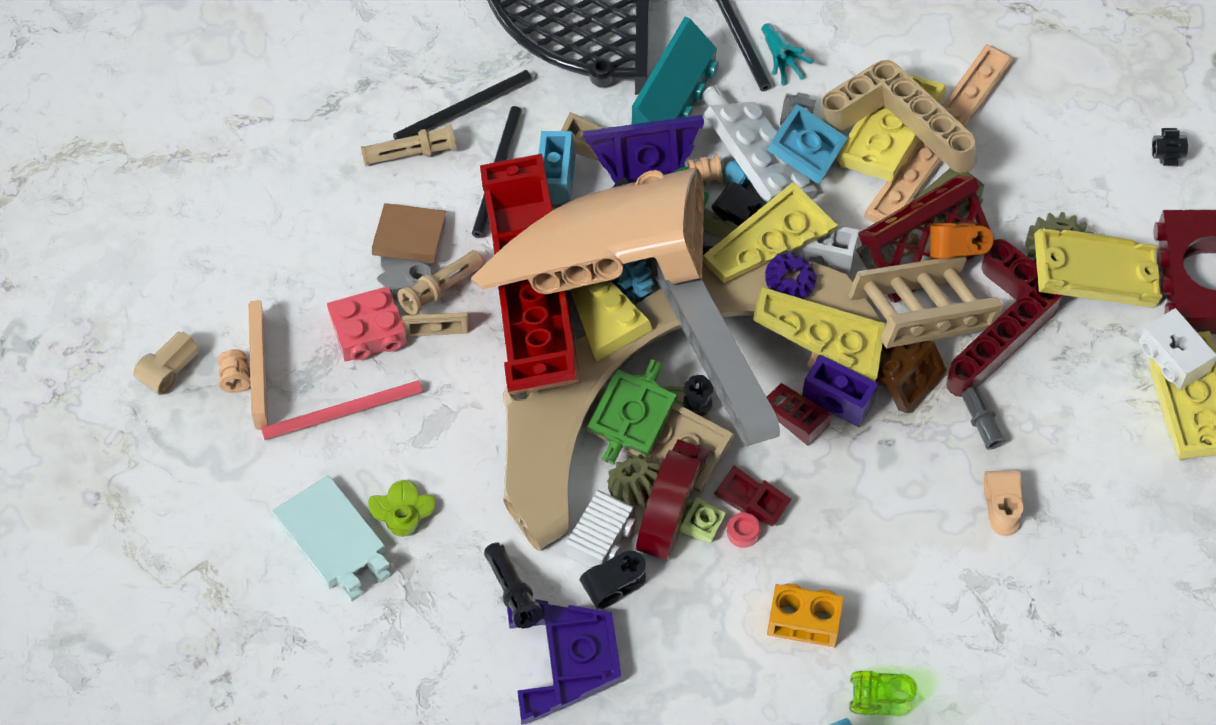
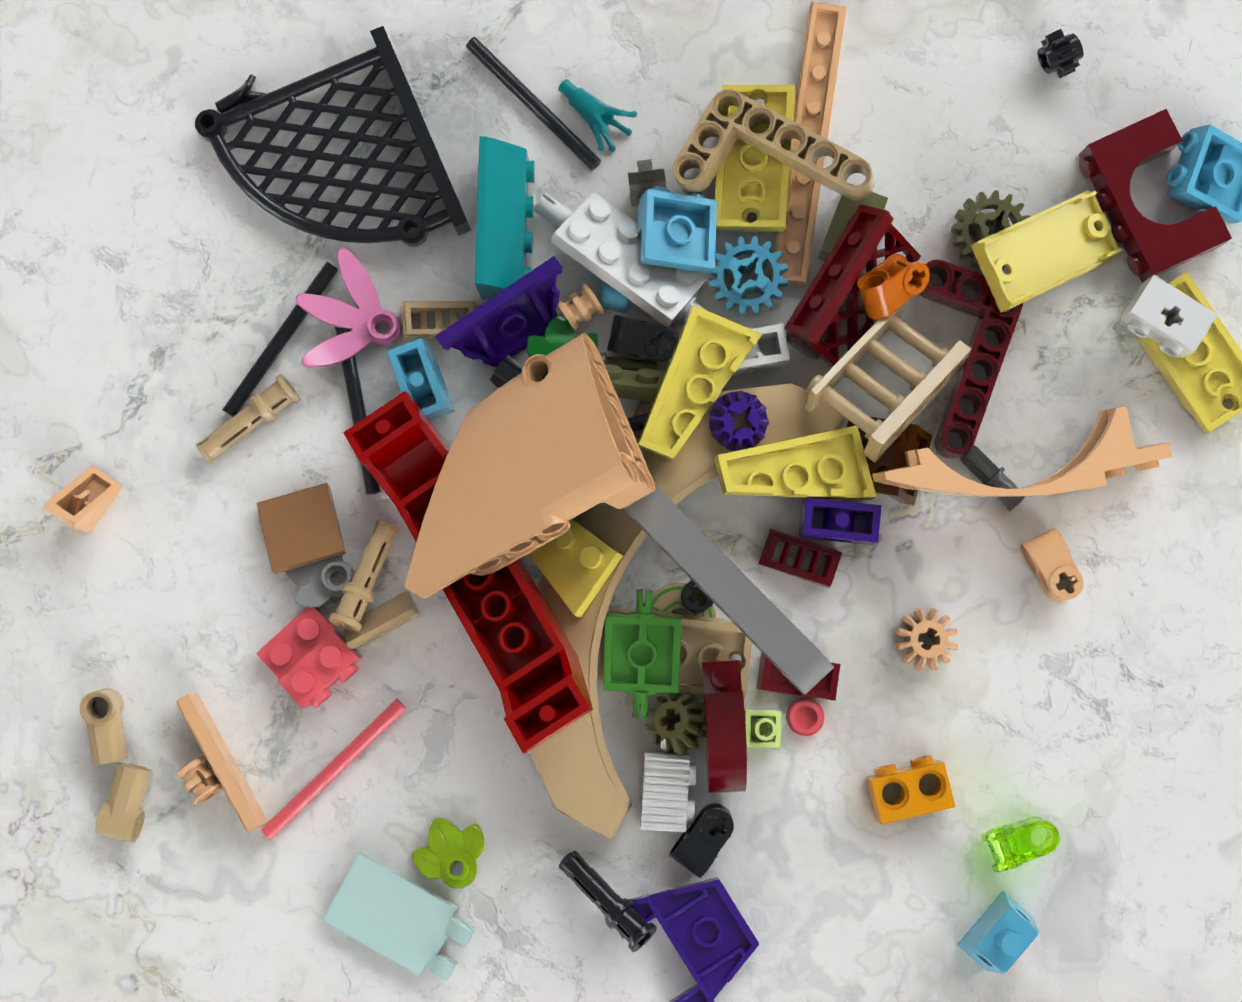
camera: 20 degrees left, 25 degrees up
(182, 304) = (106, 731): none -> tan piece
(254, 149) = (84, 500): none -> light nougat slope
(529, 119) = (342, 315): none -> bright pink plant
(849, 197) = (762, 284): none -> medium azure gear
(872, 508) = (930, 652): none -> light nougat gear
(1083, 431) = (1101, 457): none -> light nougat slope

